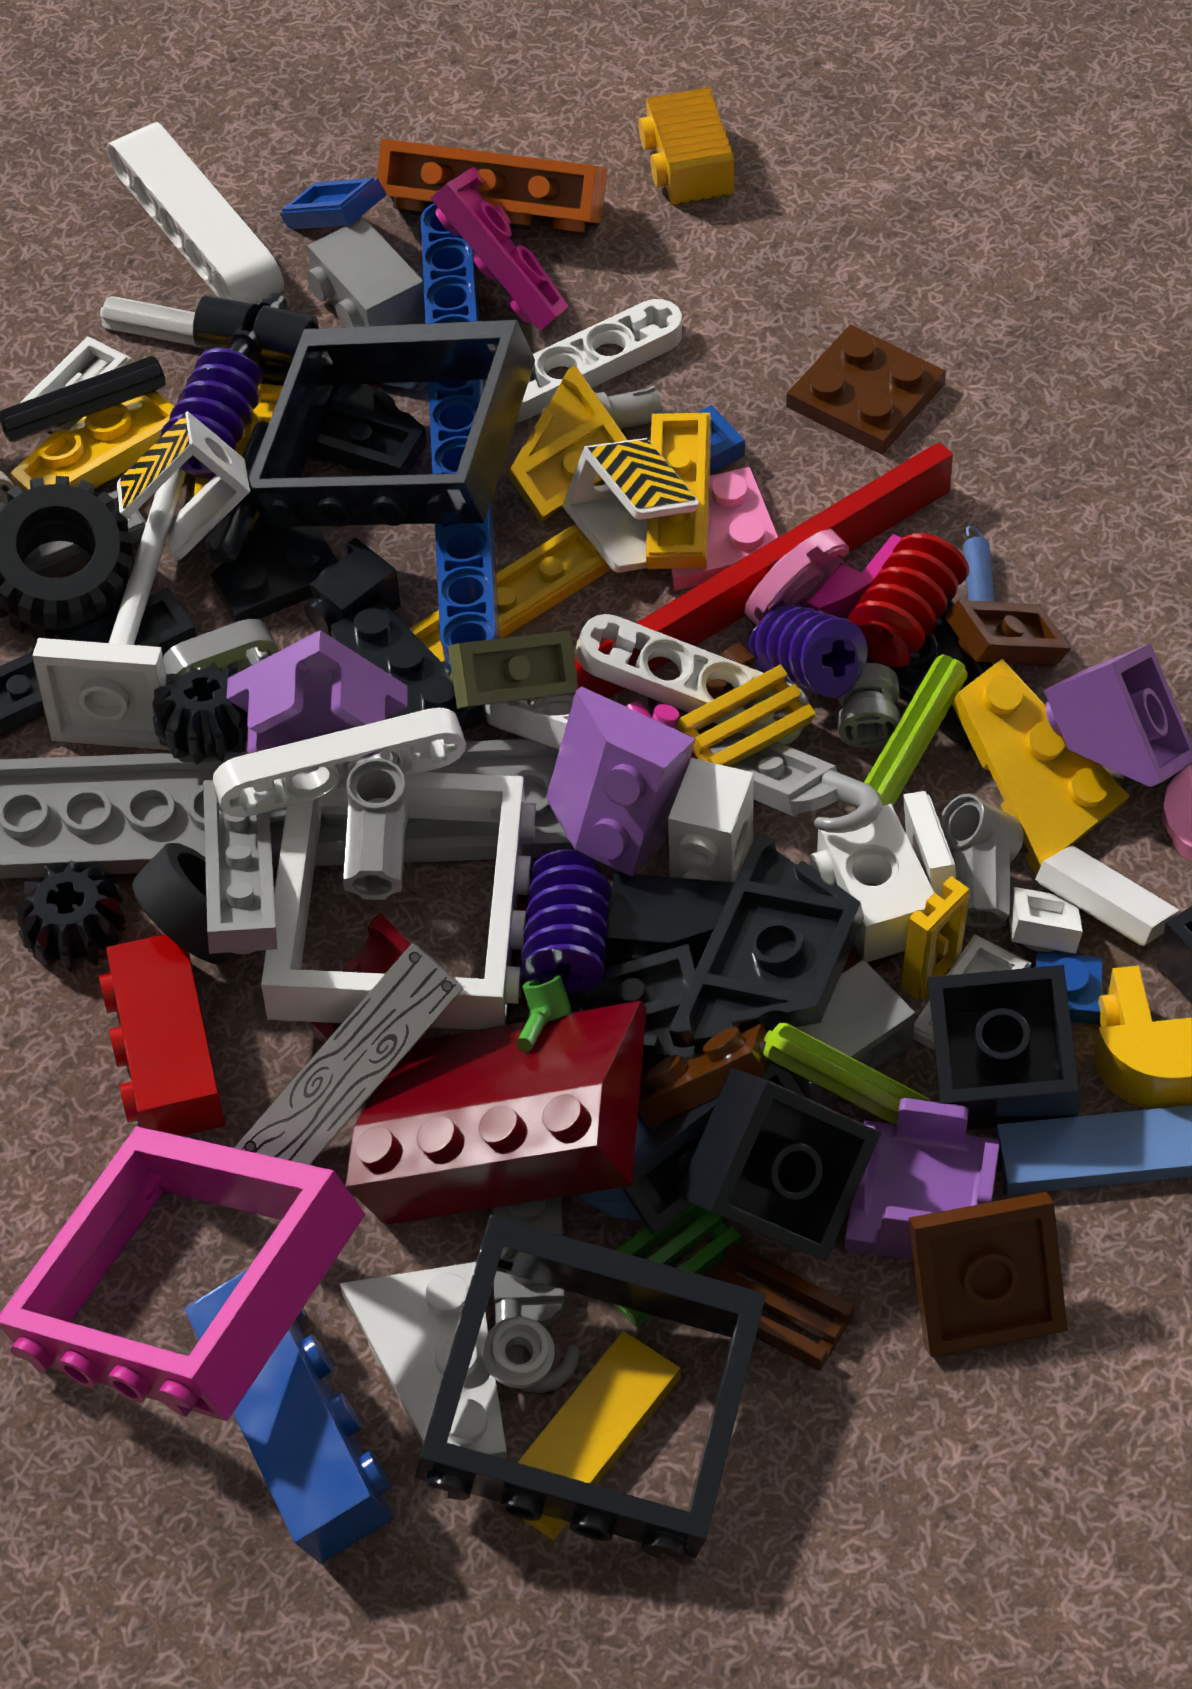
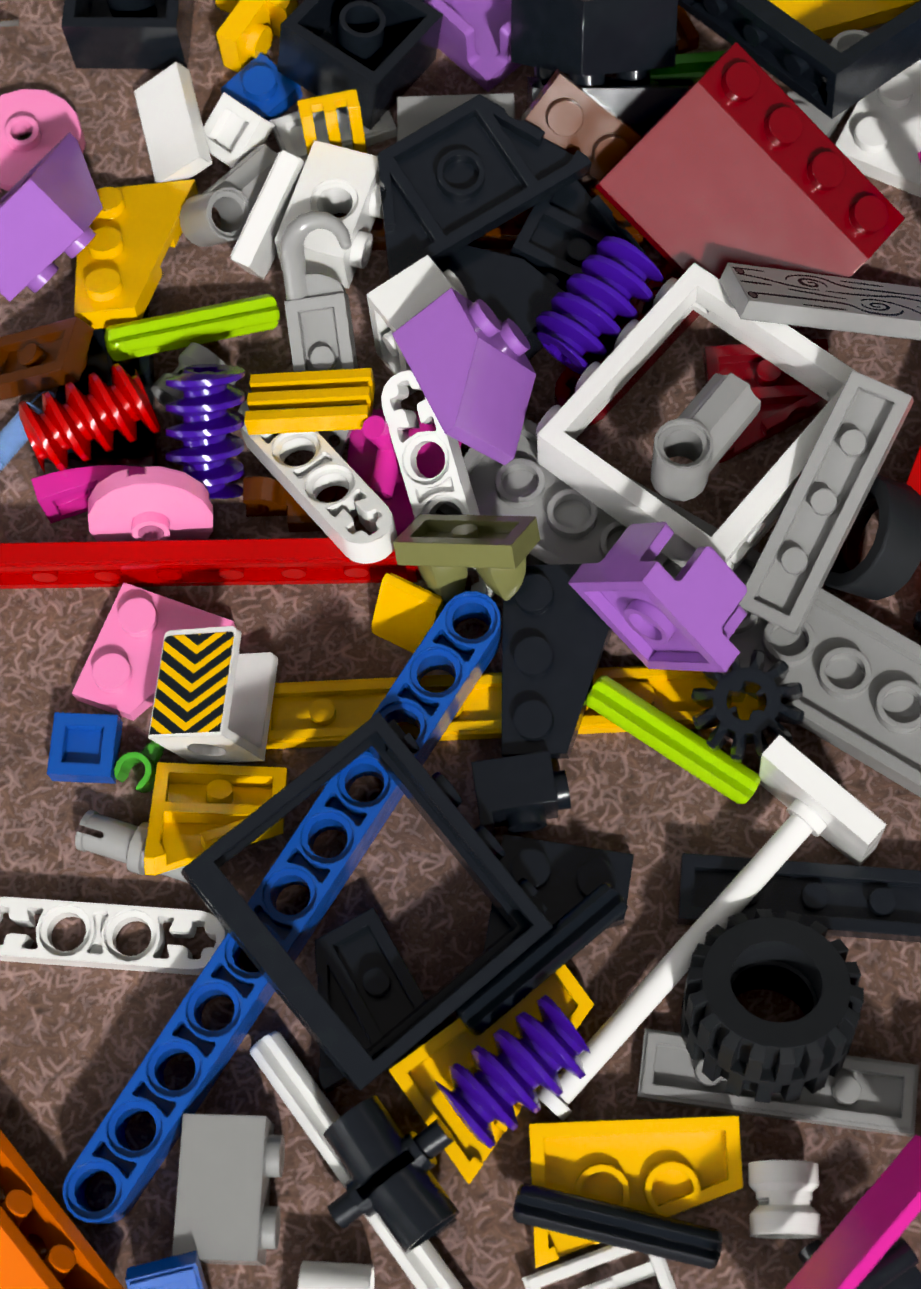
camera: 140 degrees left, 15 degrees up
(164, 458) = (608, 974): white piece -> none
(229, 647) = (680, 808): light grey beam -> none
(271, 777) = (691, 512): white beam -> none
(489, 234) = (87, 1110): dark pink wing -> none
(546, 1004) = (676, 236): bright green hand -> none
(682, 538) = (118, 727): yellow tile -> none
(836, 1072) = (489, 74): lime axle -> none

